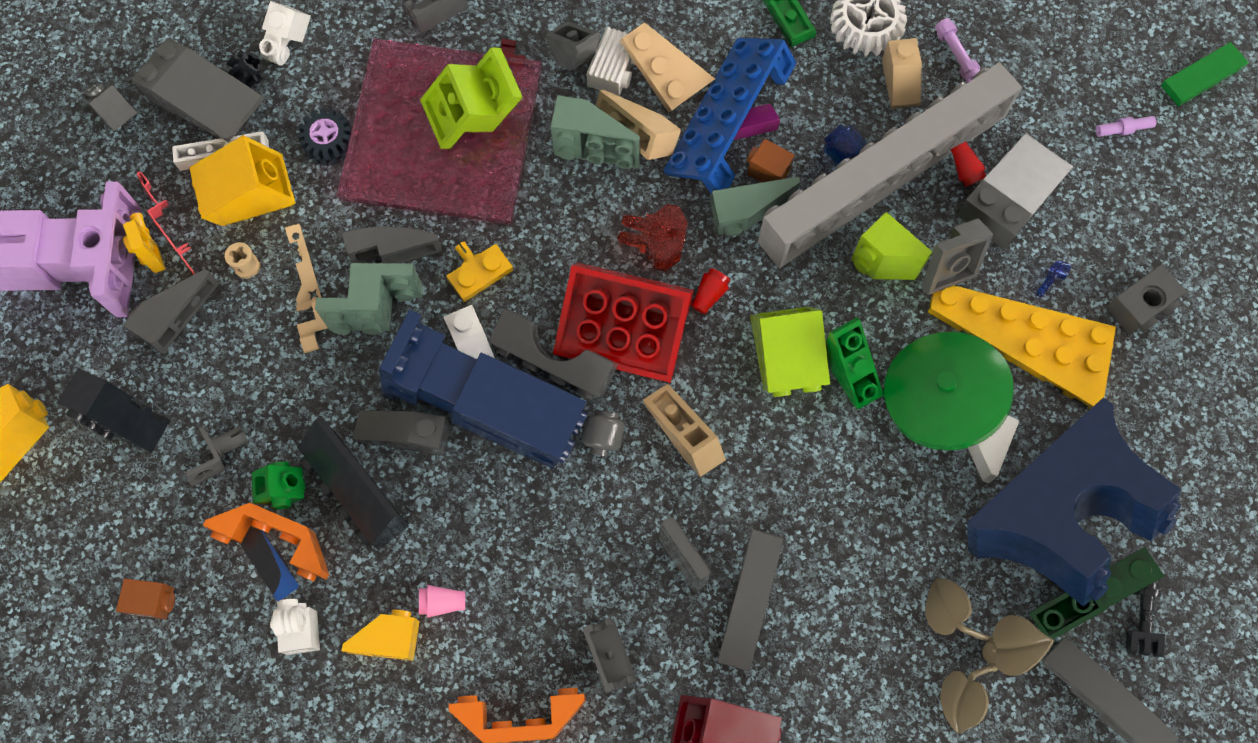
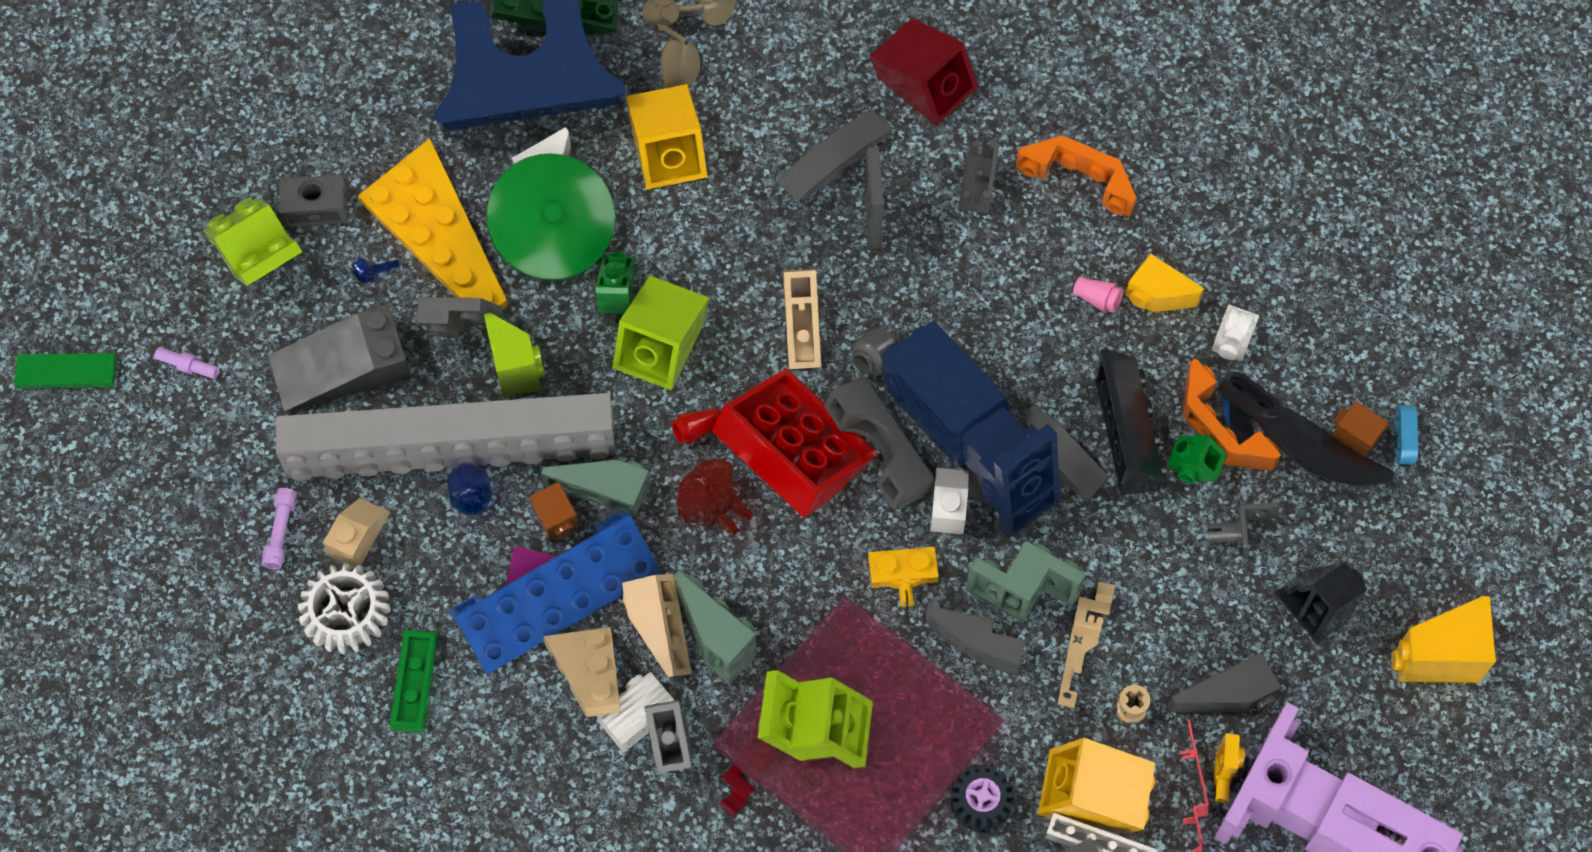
camera: 150 degrees left, 5 degrees down
(101, 619) = (1406, 434): none -> dark azure beam
(186, 559) = (1300, 437): none -> black plant
(910, 529) = (667, 136): none -> yellow slope
(967, 164) = (370, 395): red cone -> none
(1162, 231) = (251, 240): none -> lime bracket

